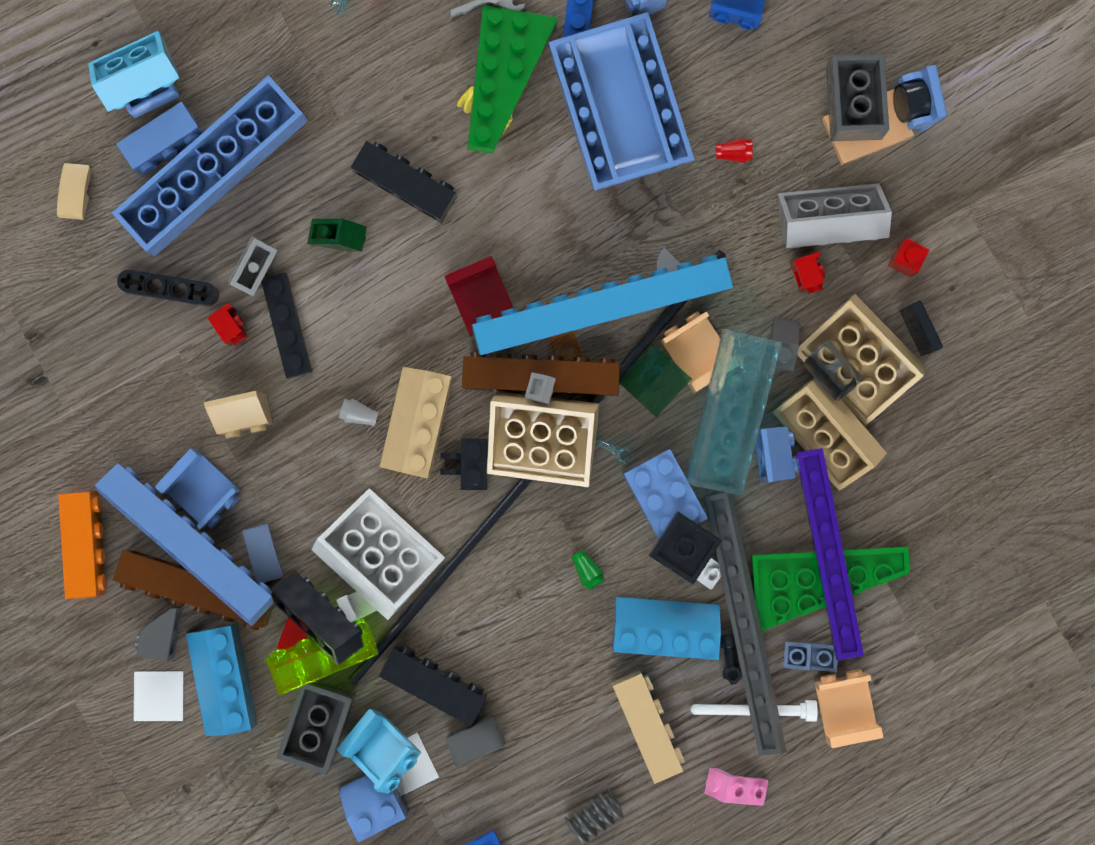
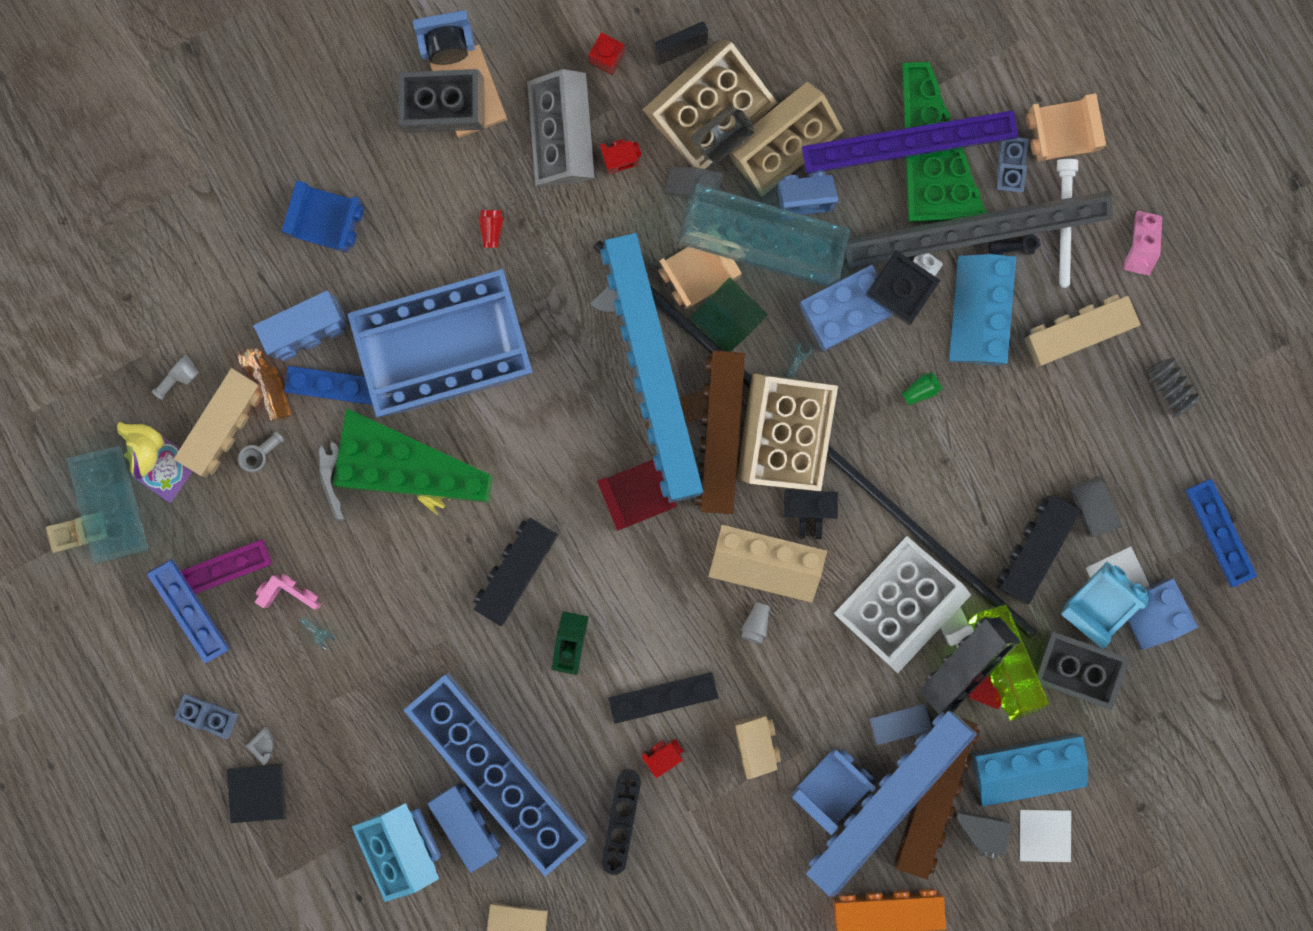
camera: 90 degrees left, 0 degrees up
(252, 266) = (602, 730): light grey brick -> none
(540, 388) = (737, 432): light grey plate -> none

